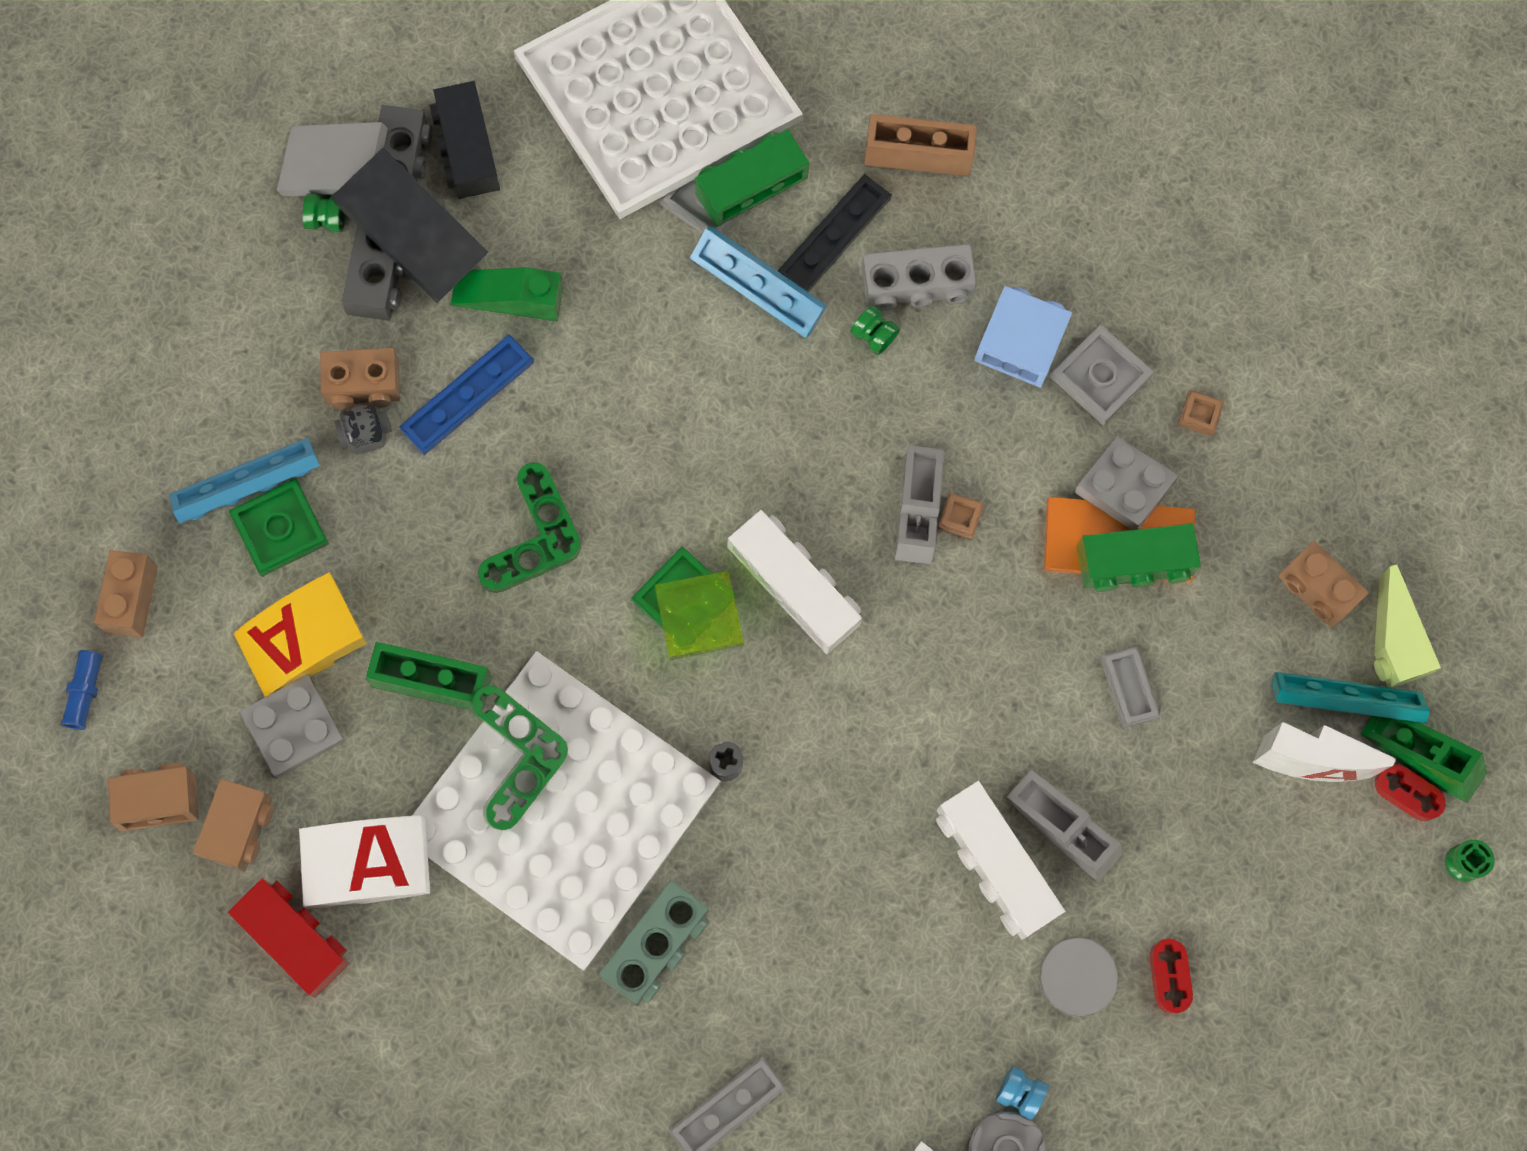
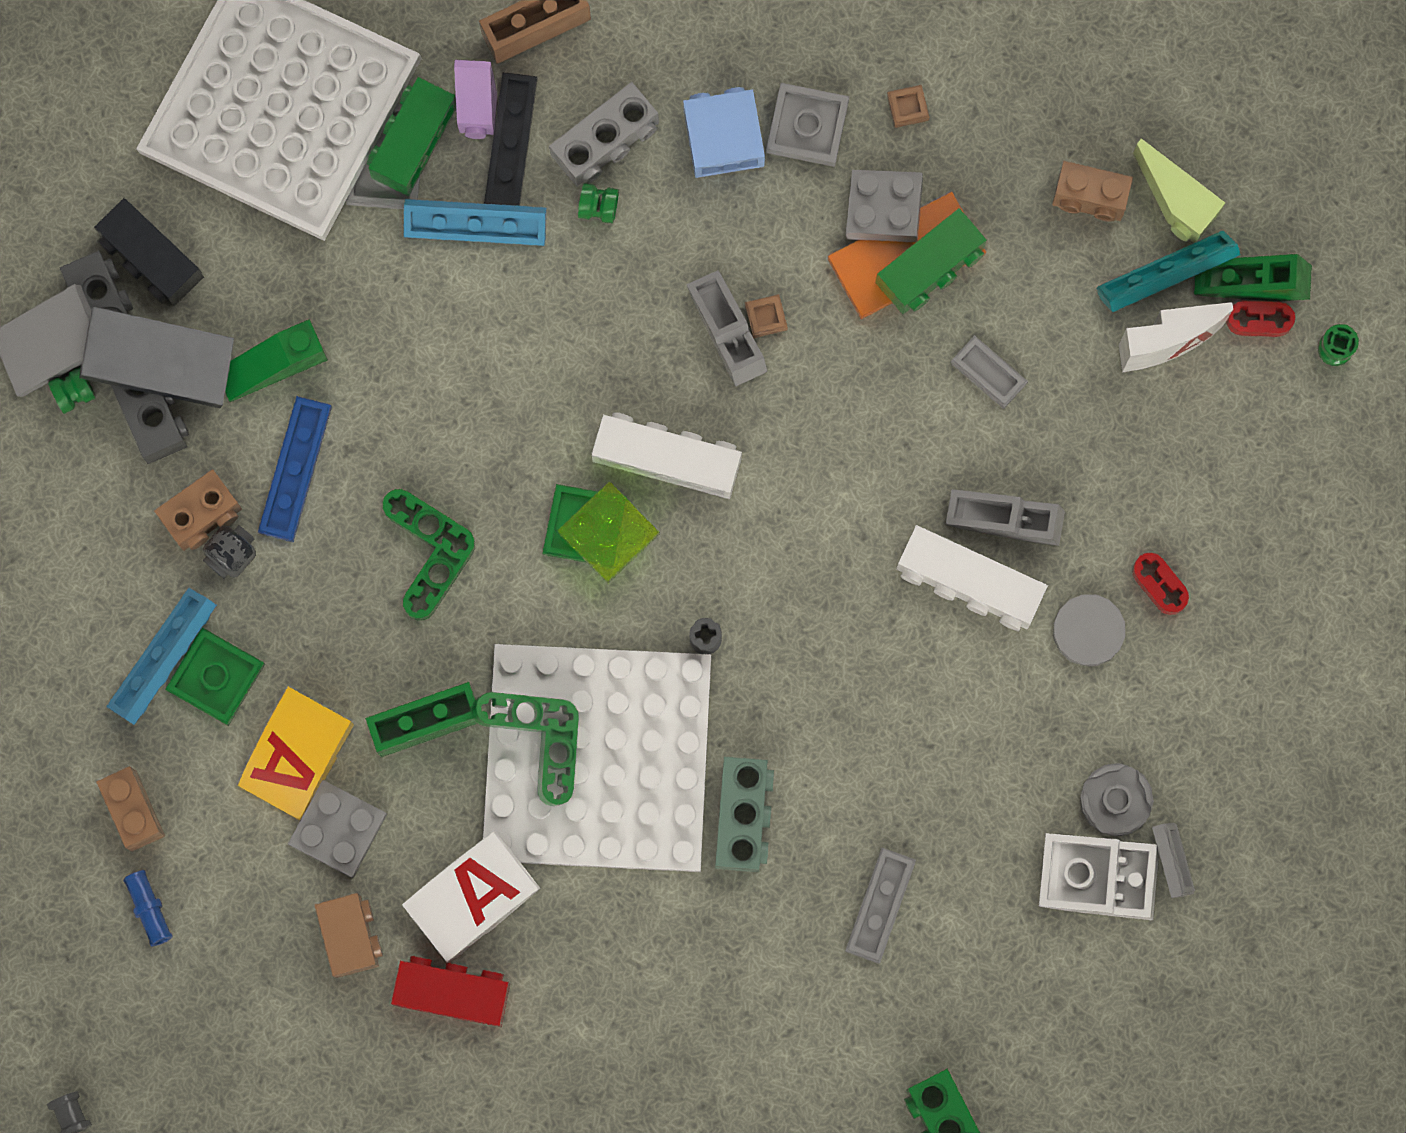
camera: 25 degrees left, 5 degrees up
(153, 797) = (267, 954): medium nougat brick -> none
(825, 174) = (475, 98): none -> lavender slope
(1014, 1088) = (1100, 747): dark azure wheel -> none

